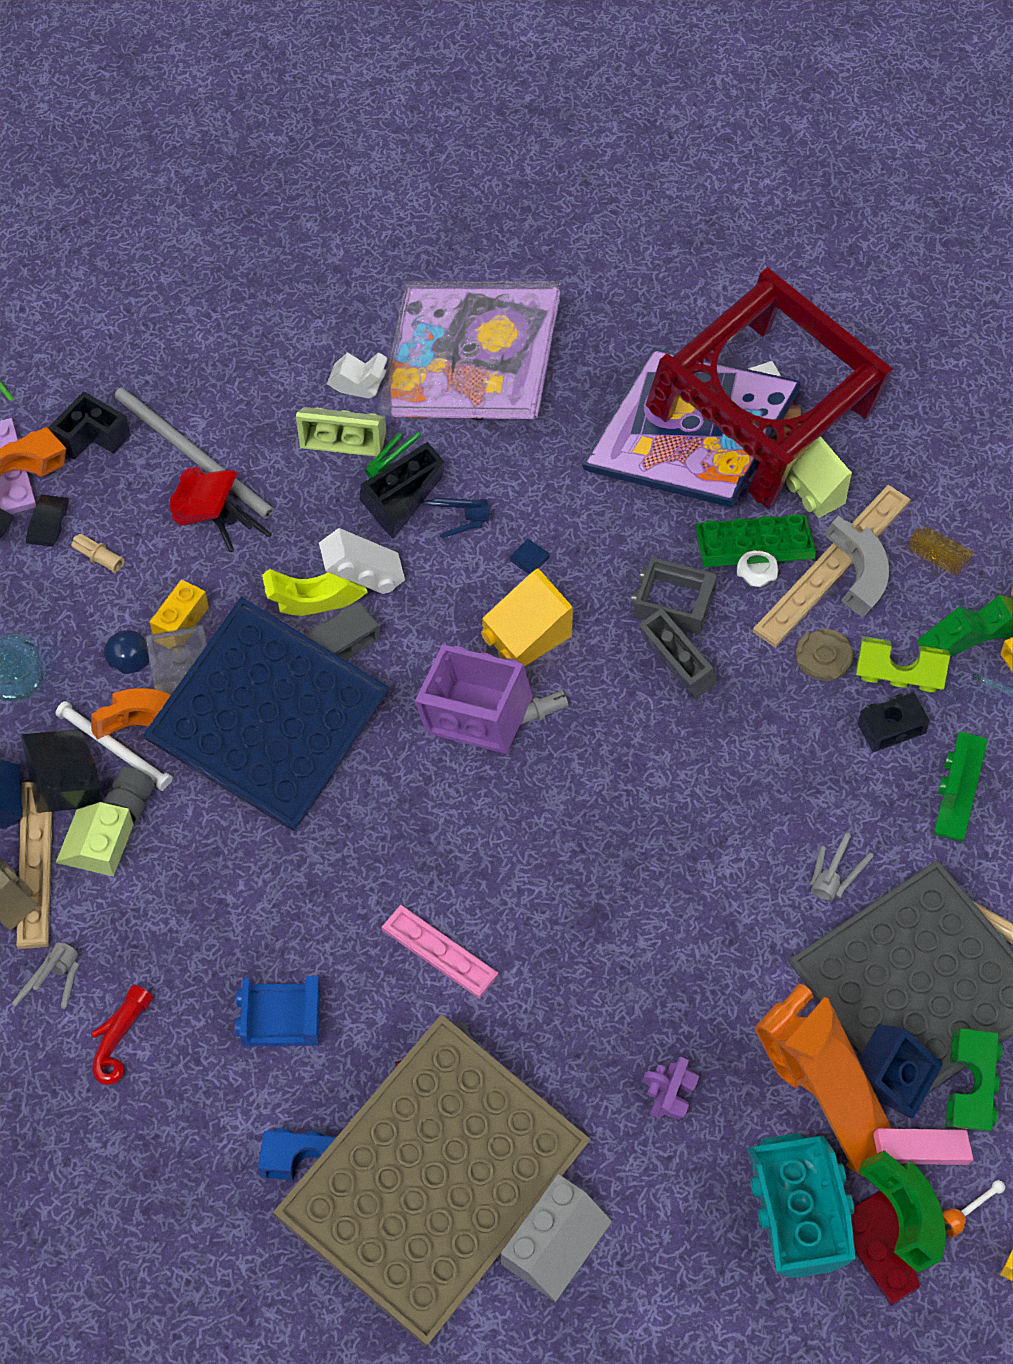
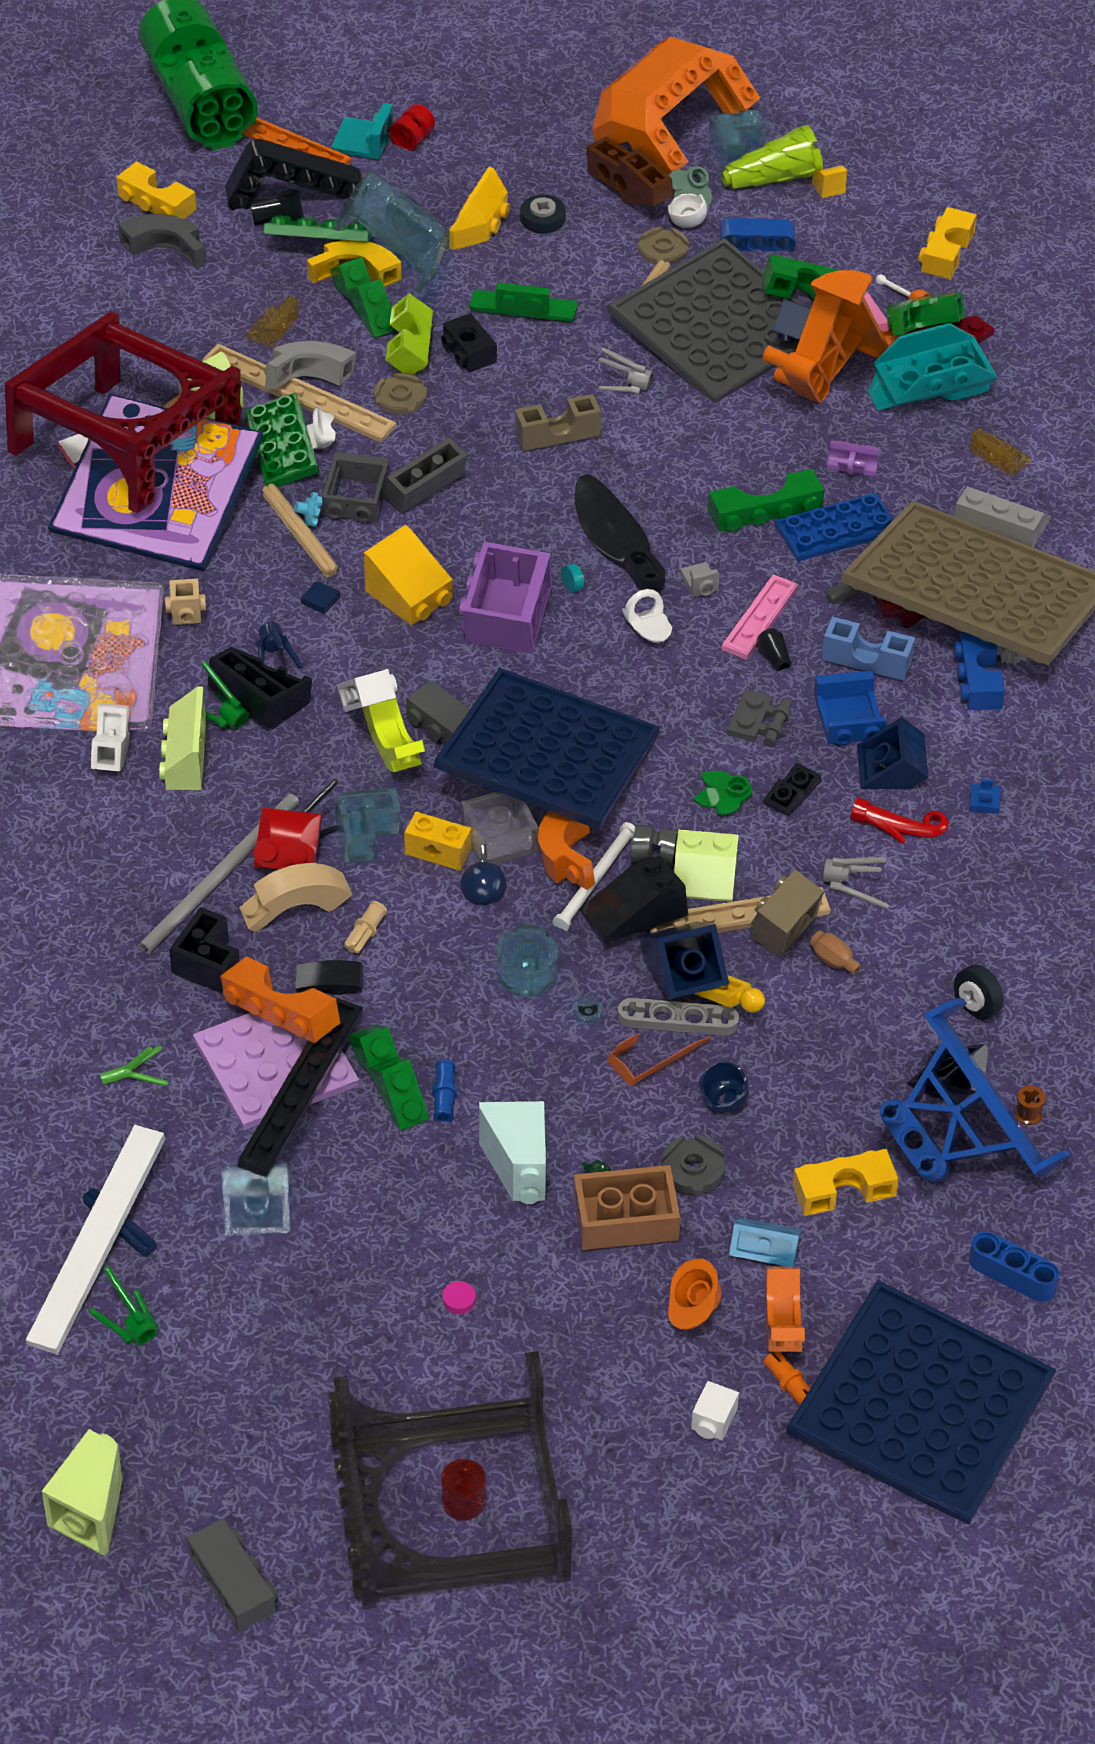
camera: 100 degrees left, 10 degrees down
(130, 1128) = (985, 797): none -> blue tile
(138, 500) = (294, 886): none -> tan arch
(184, 939) = (793, 790): none -> black slope
(196, 871) = (722, 792): none -> green plate
(197, 1042) = (893, 757): none -> dark blue slope
(214, 551) = (364, 816): none -> clear light blue brick
(296, 917) = (751, 713): none -> dark grey plate
(365, 1026) = (847, 648): none -> medium blue arch
(382, 953) = (774, 648): none -> black cone
(441, 839) = (650, 623): none -> white piece
(502, 899) = (700, 579): none -> light grey bracket
(517, 775) = (572, 577): none -> teal tile
(525, 440) = (185, 601): none -> tan brick
(567, 1054) = (834, 526): none -> blue tile
(583, 830) = (616, 532): none -> black plant
(616, 1016) = (735, 509): none -> green arch
(626, 548) = (300, 530): none -> tan axle
(647, 552) = (309, 509): none -> medium azure plant
(669, 1262) = (998, 452): none -> clear yellow panel
(745, 776) = (577, 422): none -> dark tan arch

